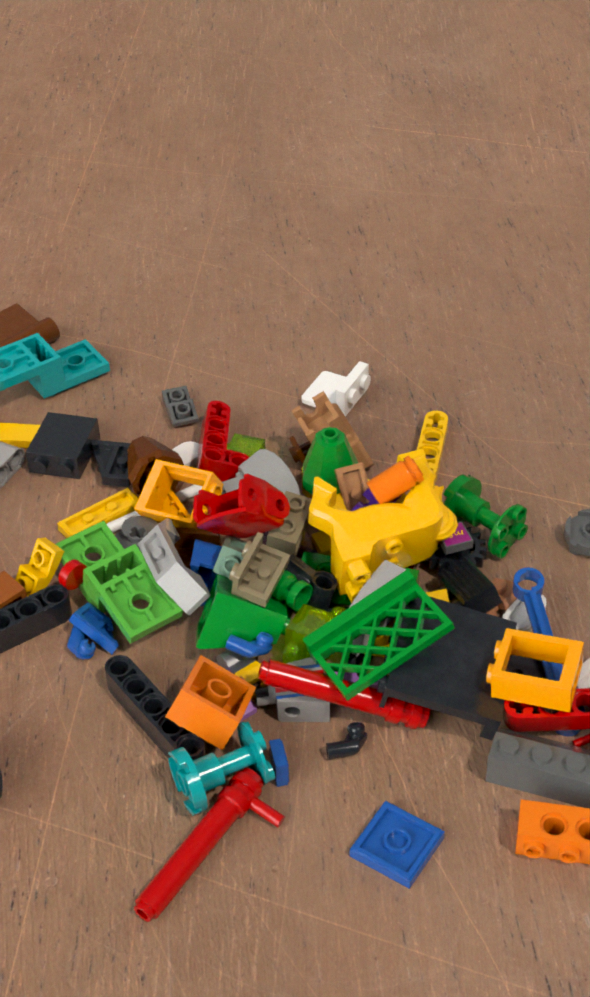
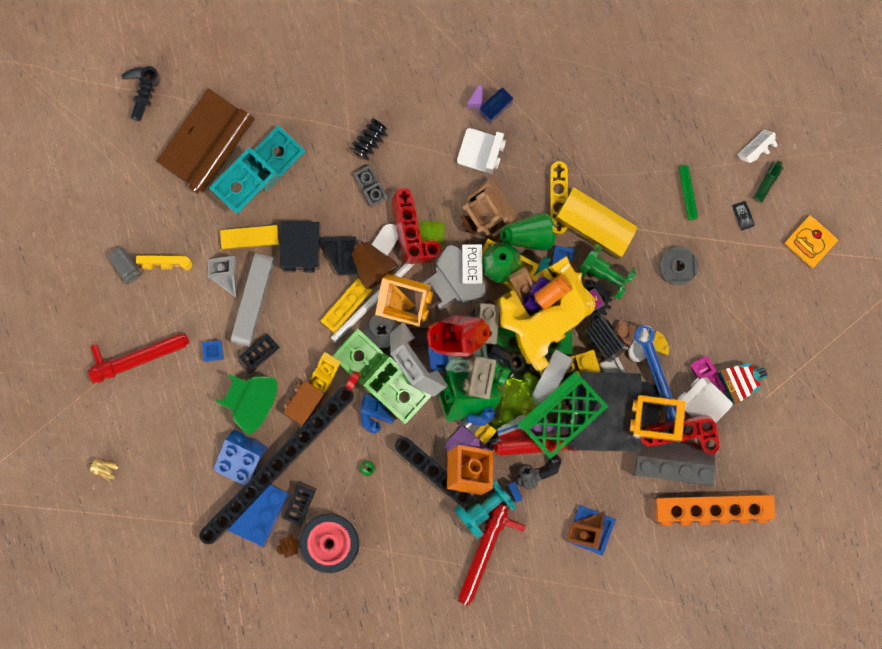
camera: 15 degrees left, 40 degrees up
(50, 704) = (369, 464): none -> green hinge
(193, 362) = (369, 140): none -> black piece
(287, 466) = (472, 264): none -> white tile
(306, 743) = (528, 477): none -> dark grey gear
(341, 346) = (476, 99): none -> medium lavender slope
(368, 347) = (496, 105): none -> clear blue piece
(377, 450) = (531, 232): none -> green cone
(388, 835) = (587, 531): none -> dark orange slope
(453, 457) = (596, 223): none -> yellow slope
(556, 618) = (661, 344): none -> yellow tile

